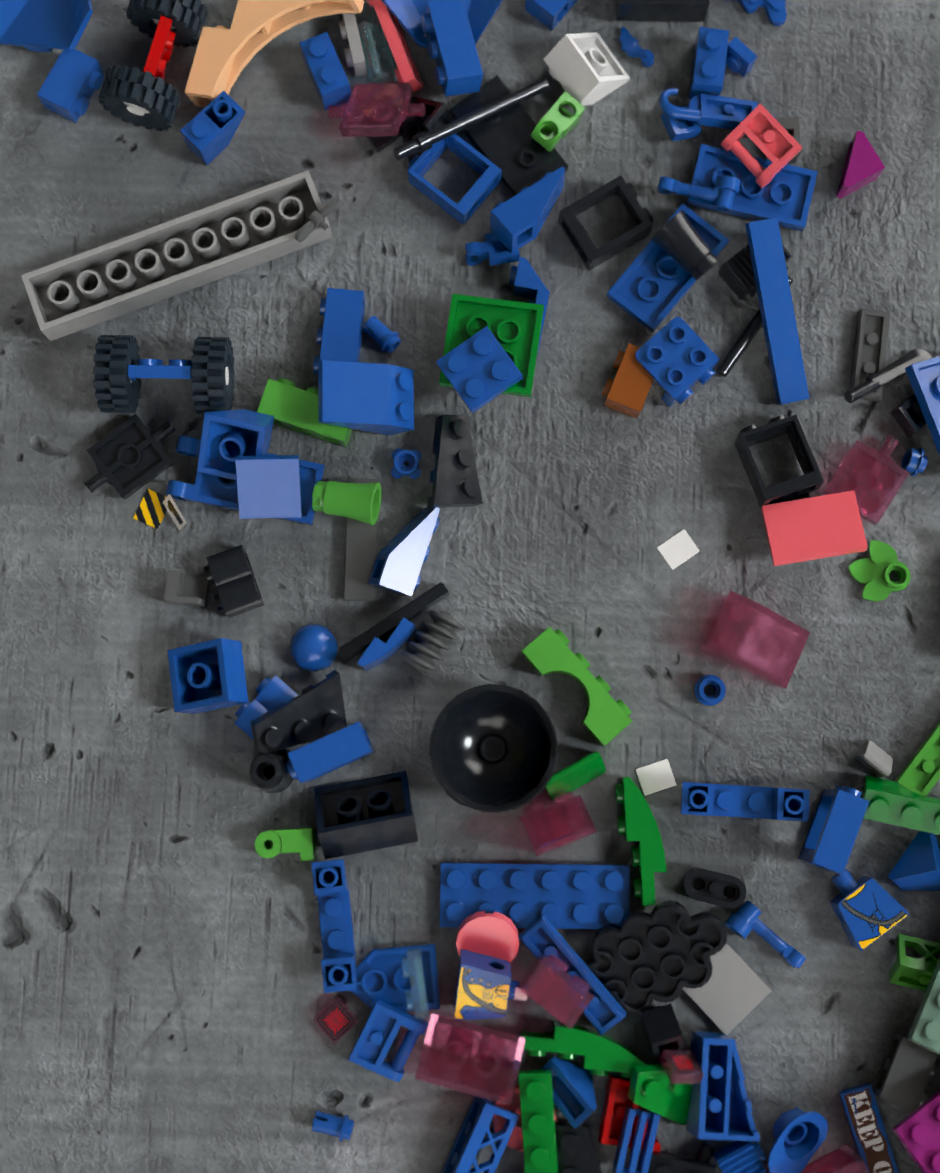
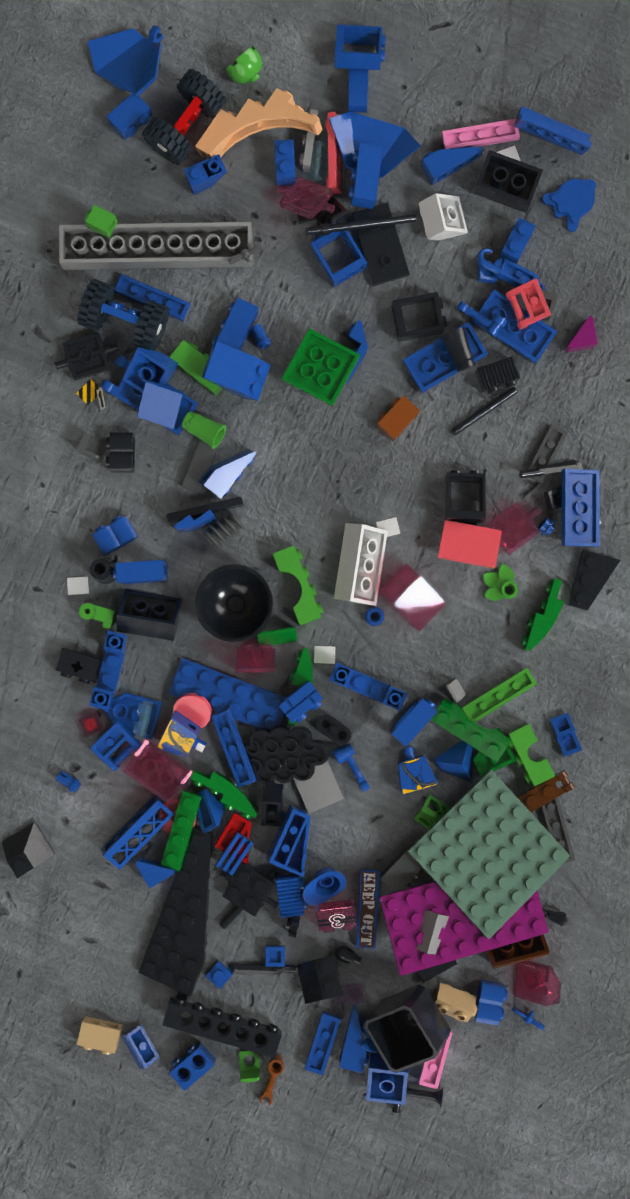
camera: 20 degrees right, 5 degrees up
(82, 246) = (101, 221): none -> bright green brick
(181, 333) = (143, 293): none -> blue tile
(207, 676) = (86, 502): blue brick -> none
(238, 810) = (77, 585): none -> white sticker
(268, 925) = (69, 658): none -> black brick
(303, 719) = (133, 546): black wing -> none
(313, 647) = (154, 507): blue hair -> none
(401, 456) = (246, 414): blue plate -> none
(455, 469) = (274, 431): black wing -> none
(479, 369) = (307, 379): blue plate -> none
(490, 249) = (348, 308): blue plate -> none
(523, 215) = (370, 295): blue slope -> none
(555, 990) = (219, 752): clear pink brick -> none
(557, 122) = (412, 245): bright green leg -> none
(631, 46) = (476, 215): blue piece -> none
(652, 864) = (301, 701): none -> blue brick
(653, 1091) = (260, 829): green wing -> none
(659, 619) = (360, 564): none -> white slope
(677, 360) = (428, 416): blue bracket -> none
(681, 1066) = (274, 820): clear pink tile -> none
(740, 57) = (537, 243): blue plate -> none
(777, 310) = (499, 407): blue tile -> none

